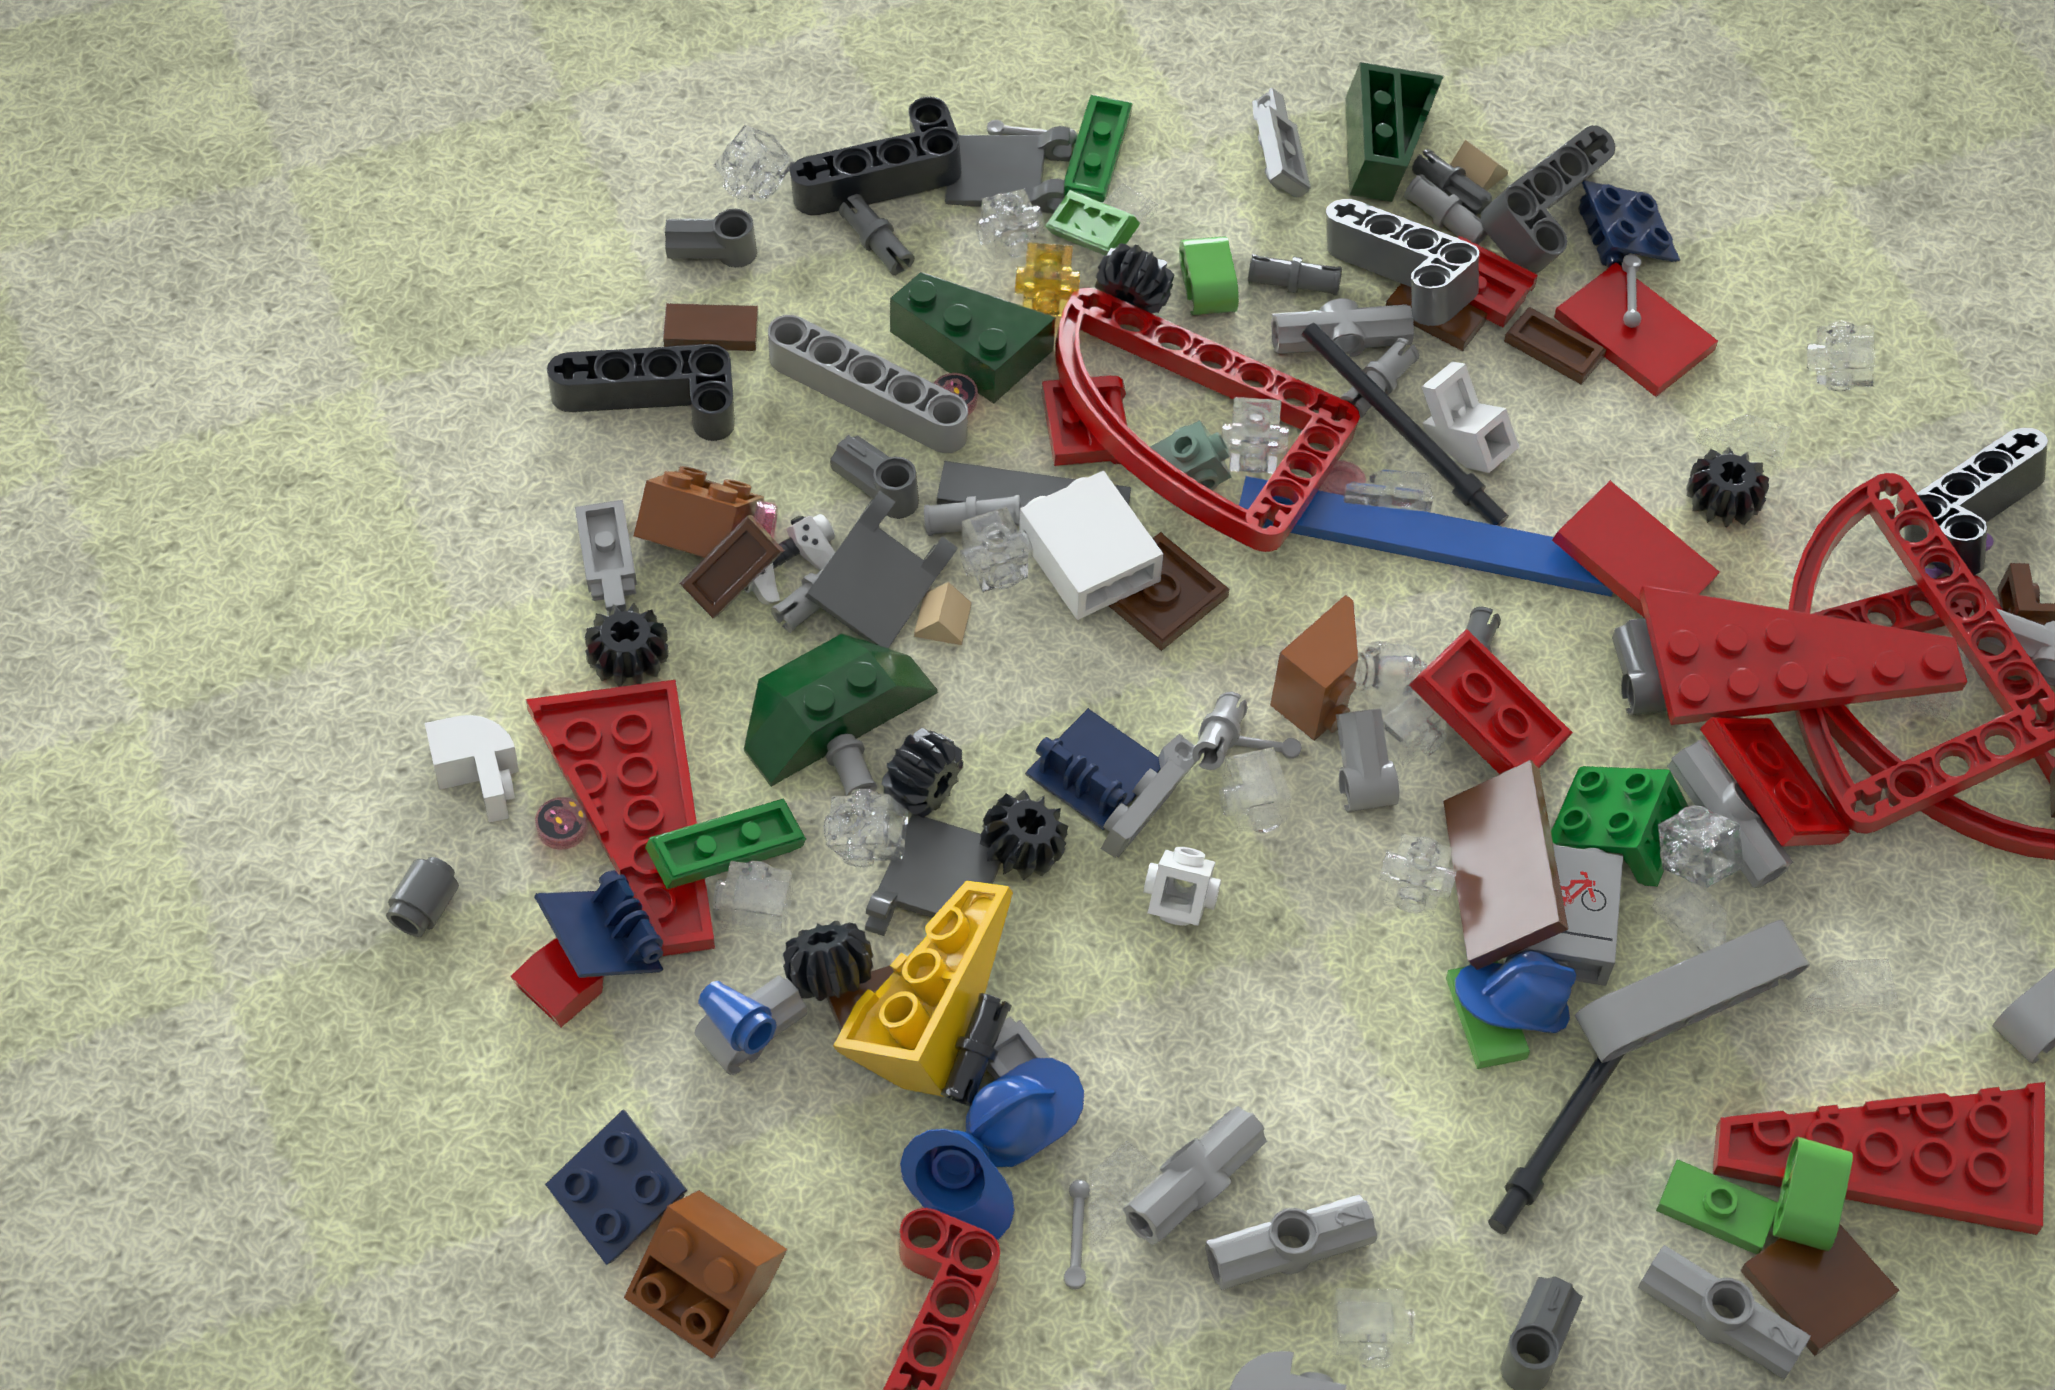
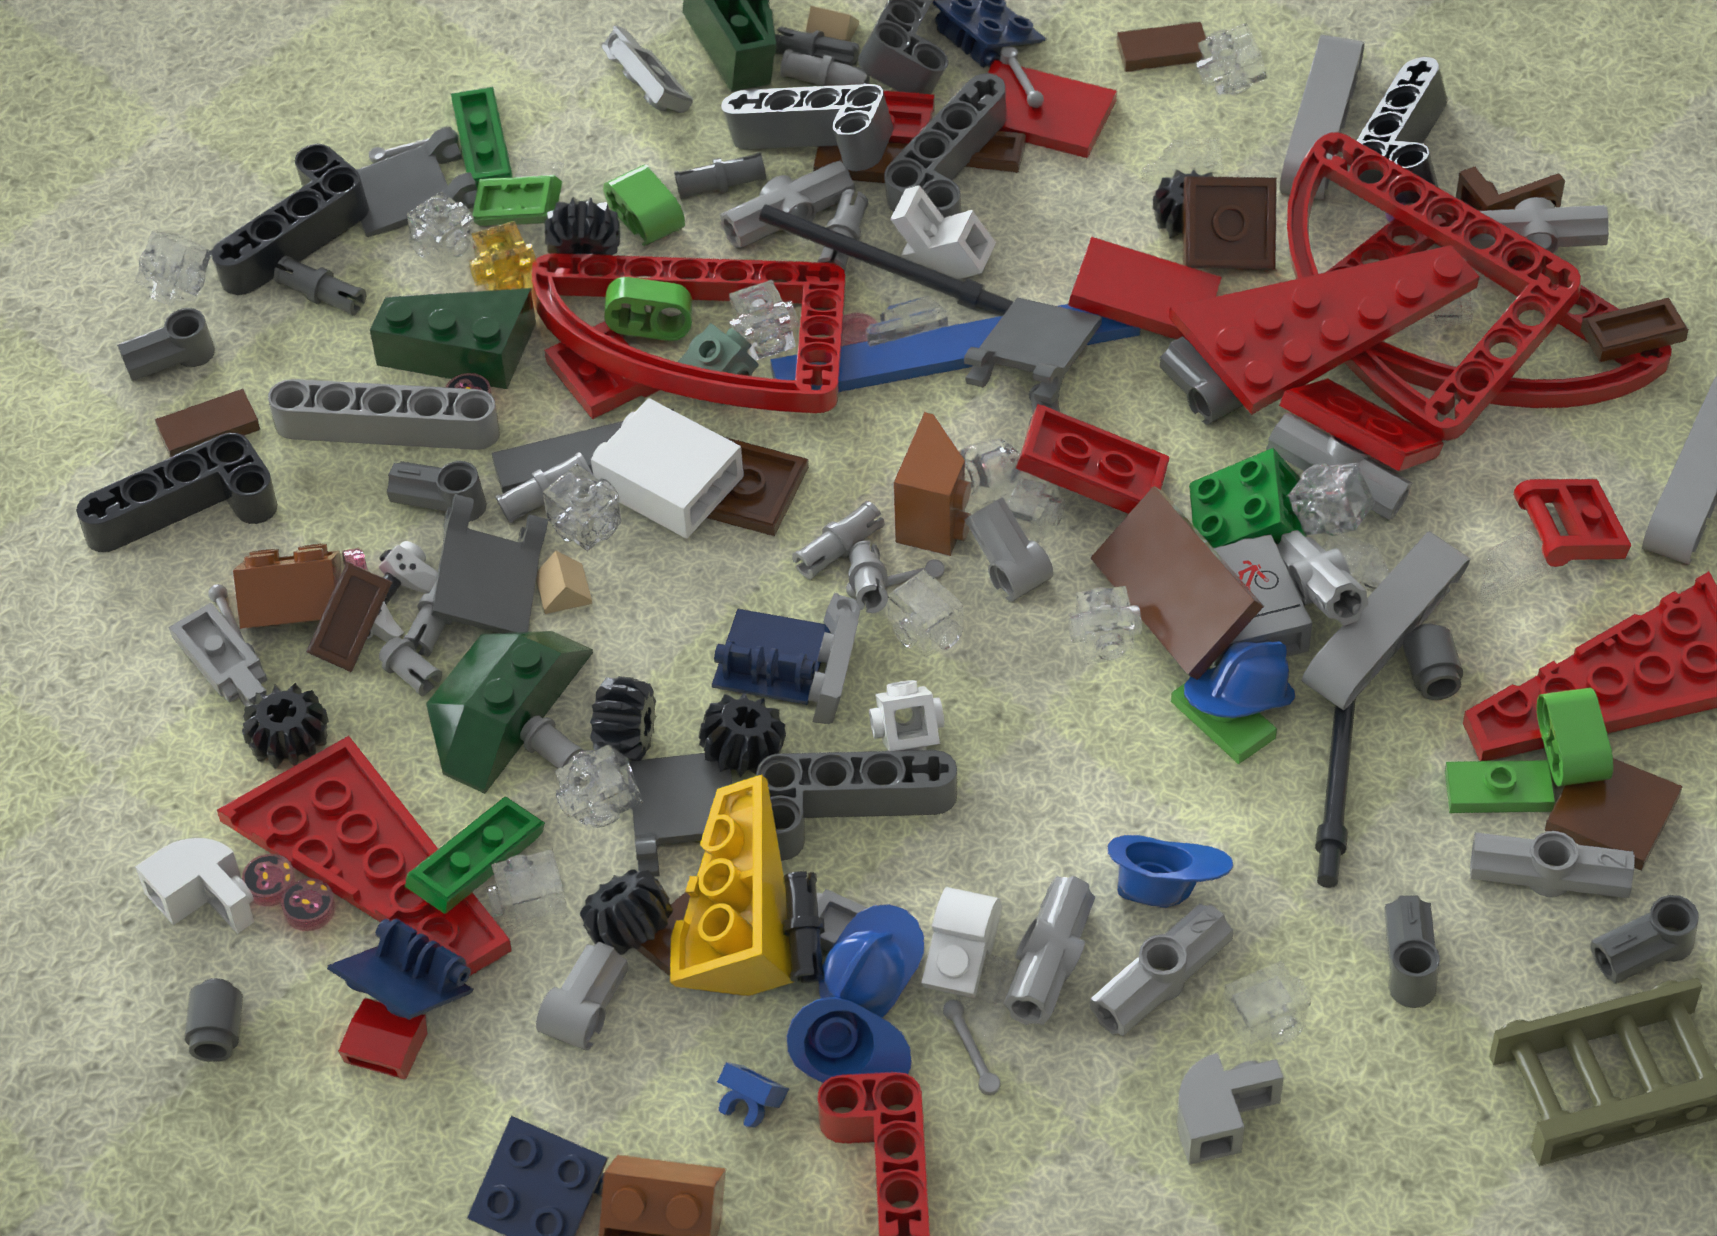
camera: 20 degrees left, 5 degrees down
(538, 783) = (268, 878): none -> clear pink tile
(635, 493) = (218, 594): none -> light grey hinge
(740, 1019) = (575, 989): blue cone -> none
(762, 626) = (400, 657): none -> light grey pin
(856, 1182) = (753, 1089): none -> blue tile
(1099, 938) = (914, 780): none -> dark grey beam
(1120, 1119) = (962, 936): none -> white brick
(1147, 378) = (652, 324): none -> bright green beam
(1215, 681) = (838, 540): none -> light grey pin
(1344, 1145) = (1164, 871): none -> blue piece
(1500, 561) = (1035, 340): none -> dark grey flag
(1567, 313) = (949, 144): none -> dark grey beam
(1646, 922) = (1322, 578): none -> light grey piece
(1718, 1052) = (1433, 661): none -> dark grey brick
(1753, 521) = (1229, 222): none -> reddish brown tile
(1786, 311) = (1160, 46): none -> reddish brown tile
(1916, 434) = (1323, 102): none -> light grey beam
(1950, 969) = (1585, 513): none -> red plate

